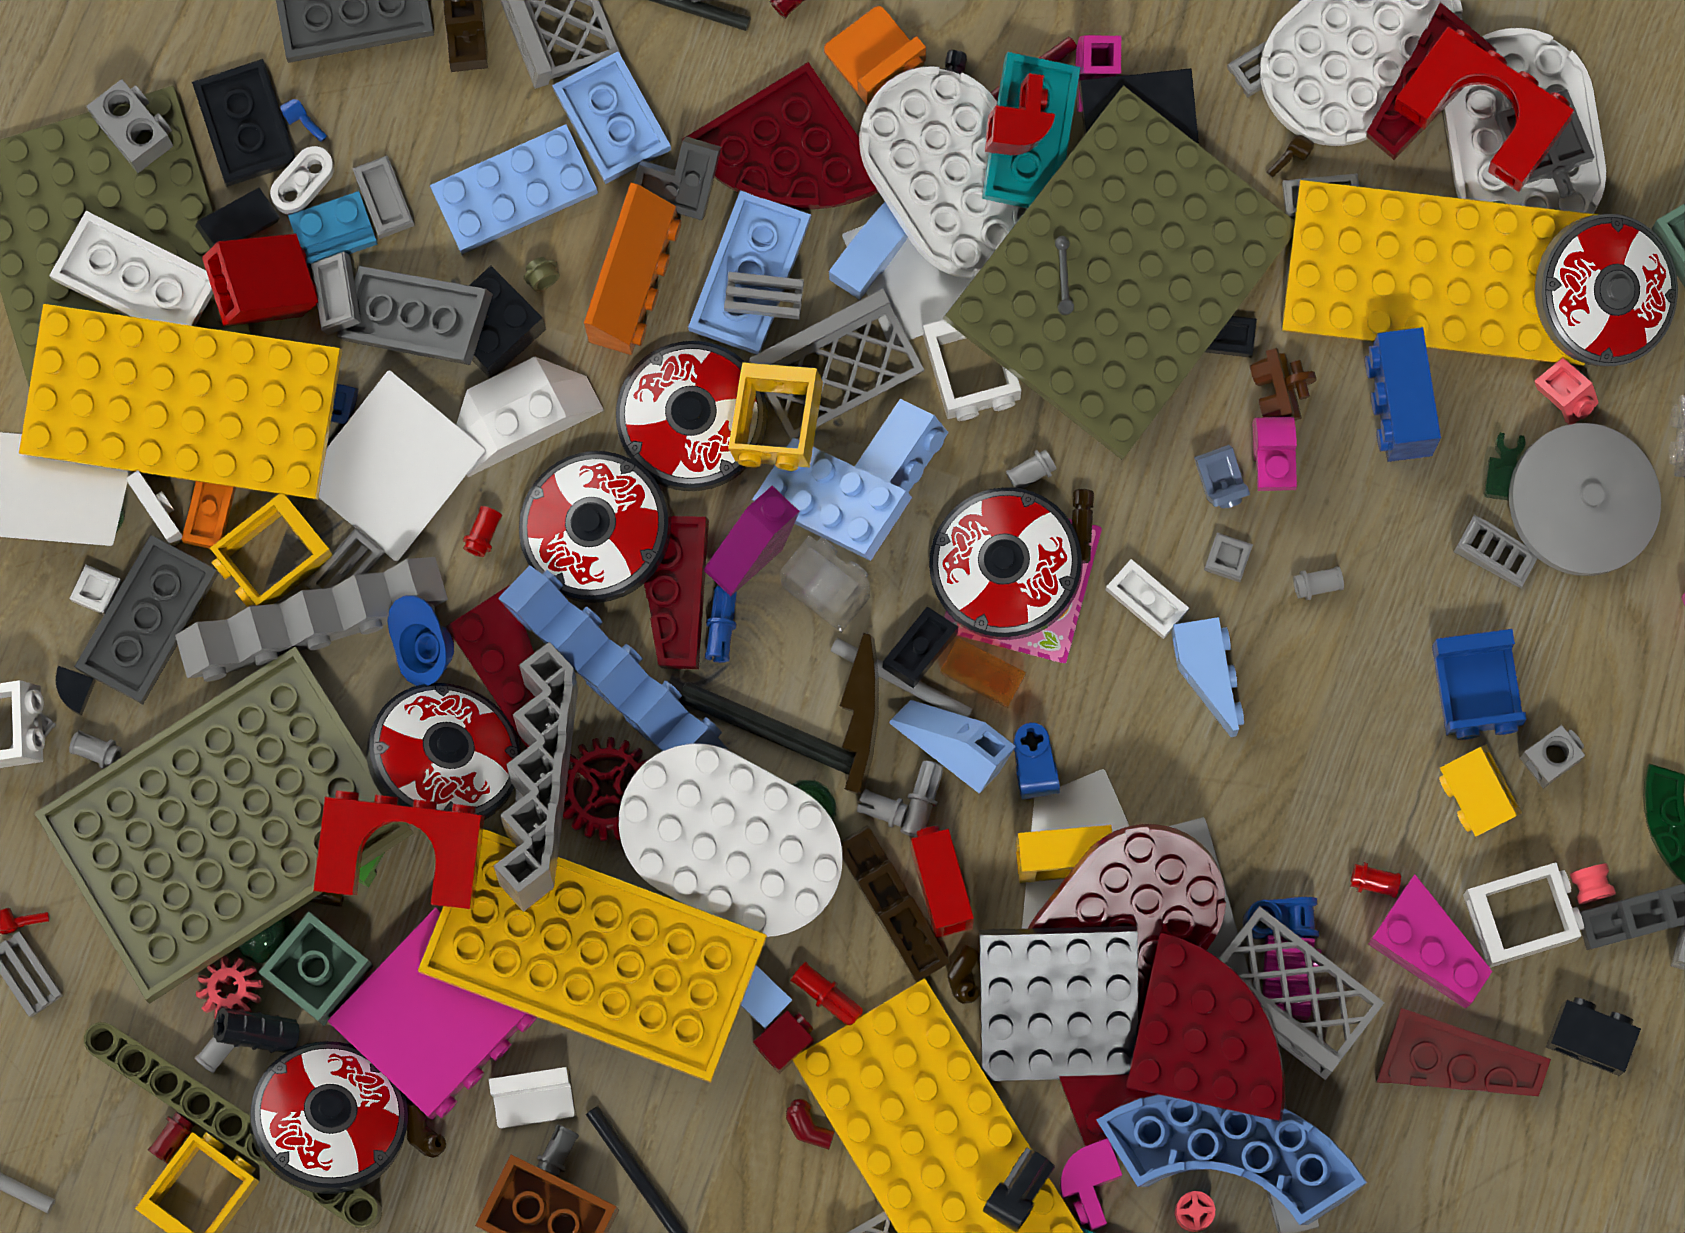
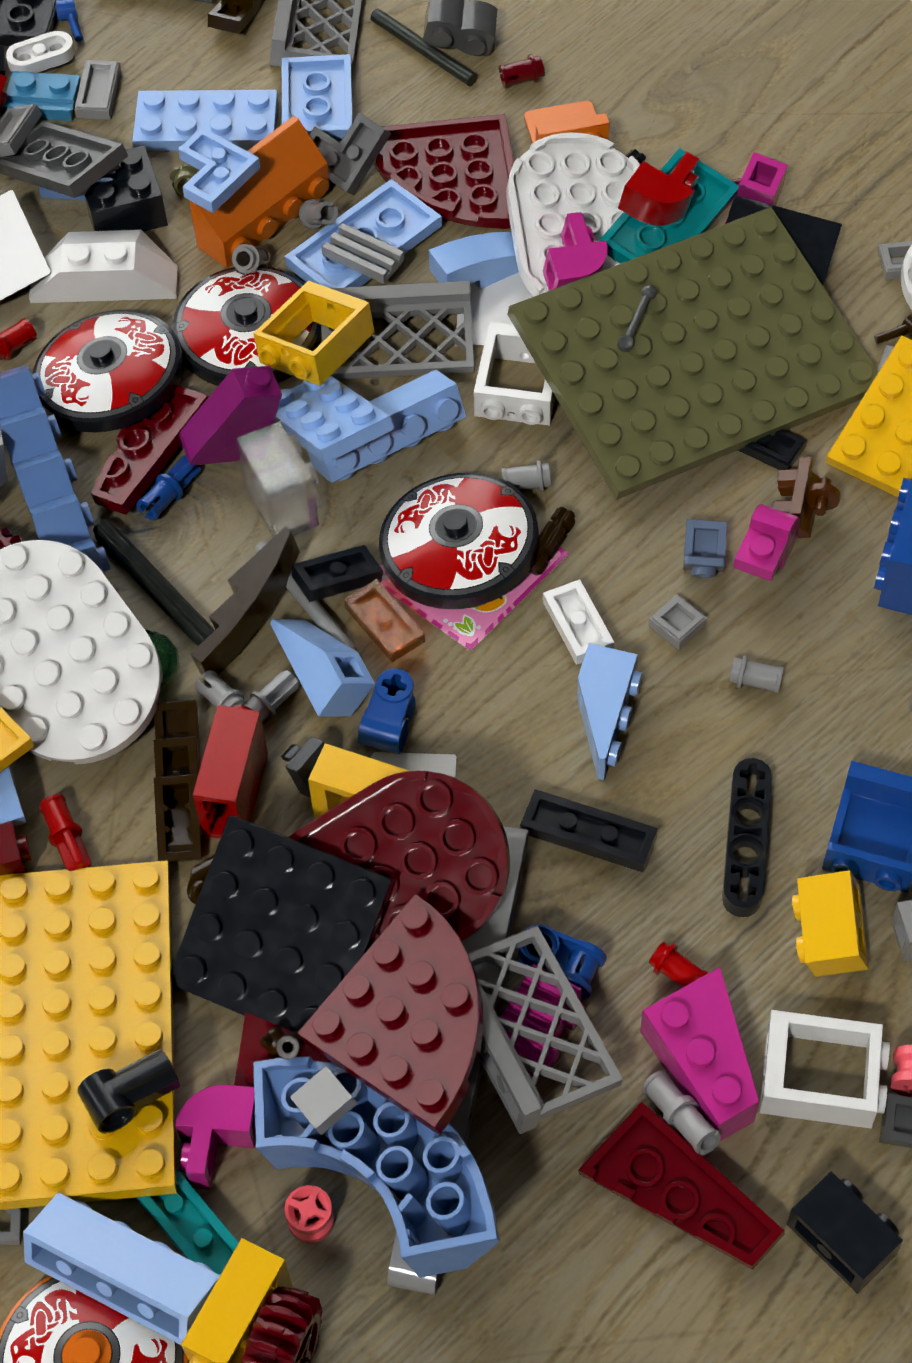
camera: 25 degrees right, 20 degrees down
(607, 279) = (221, 166): none -> light blue plate
(659, 347) = (249, 263): none -> light grey pin
(687, 262) = (317, 213): none -> light grey pin
(981, 230) = (577, 257): none -> dark pink brick
(994, 842) = (302, 762): none -> black tile
(1111, 1093) = (282, 1045): none -> dark brown arm
(1175, 1130) = (323, 1100): none -> light grey tile
(1249, 792) = (589, 830): none -> black plate
(1372, 738) = (747, 836): none -> black beam
(1434, 1002) = (681, 1113): none -> light grey pin

